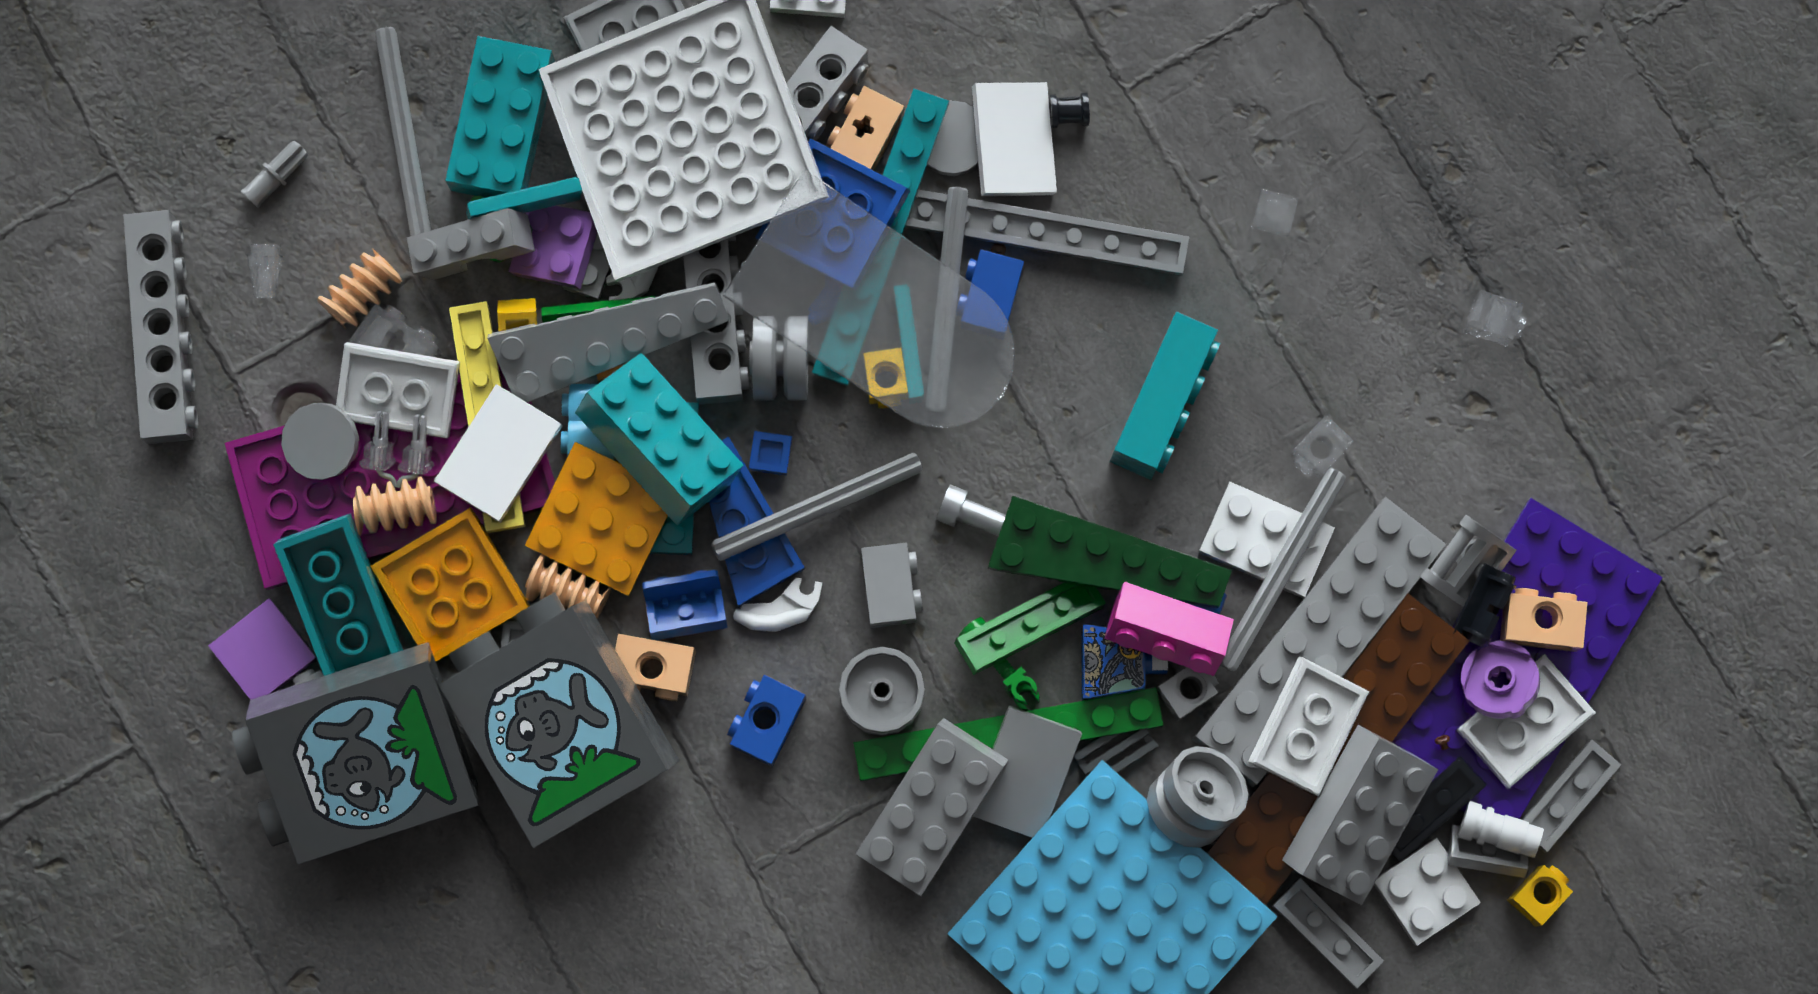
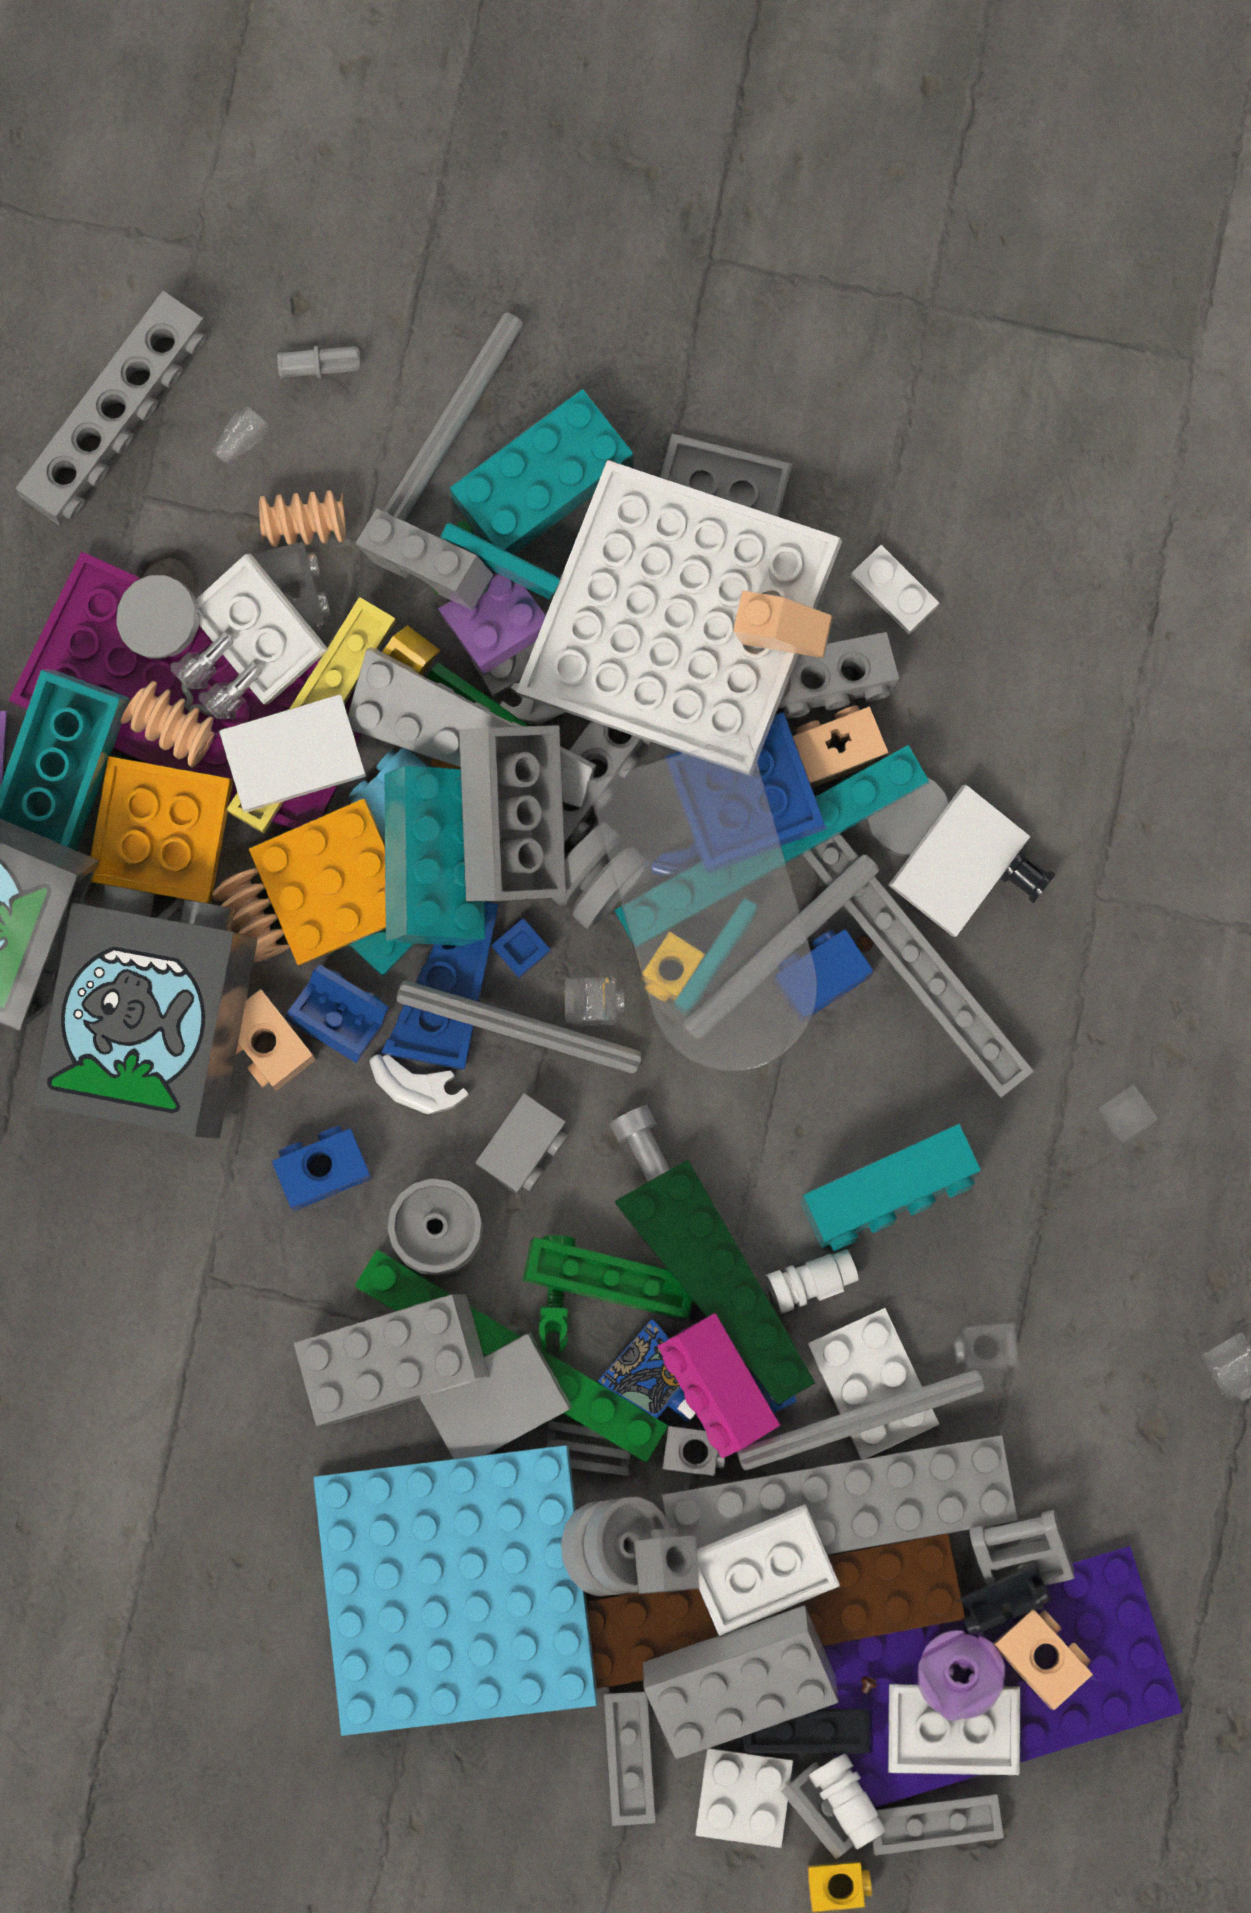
camera: 45 degrees right, 0 degrees up
(690, 360) = (512, 813): none -> light grey brick
(762, 75) = (781, 625): none -> light nougat slope
(851, 446) = (592, 1001): none -> clear brick
(1166, 502) = (818, 1278): none -> white axle
(1242, 776) = (666, 1562): none -> light grey brick

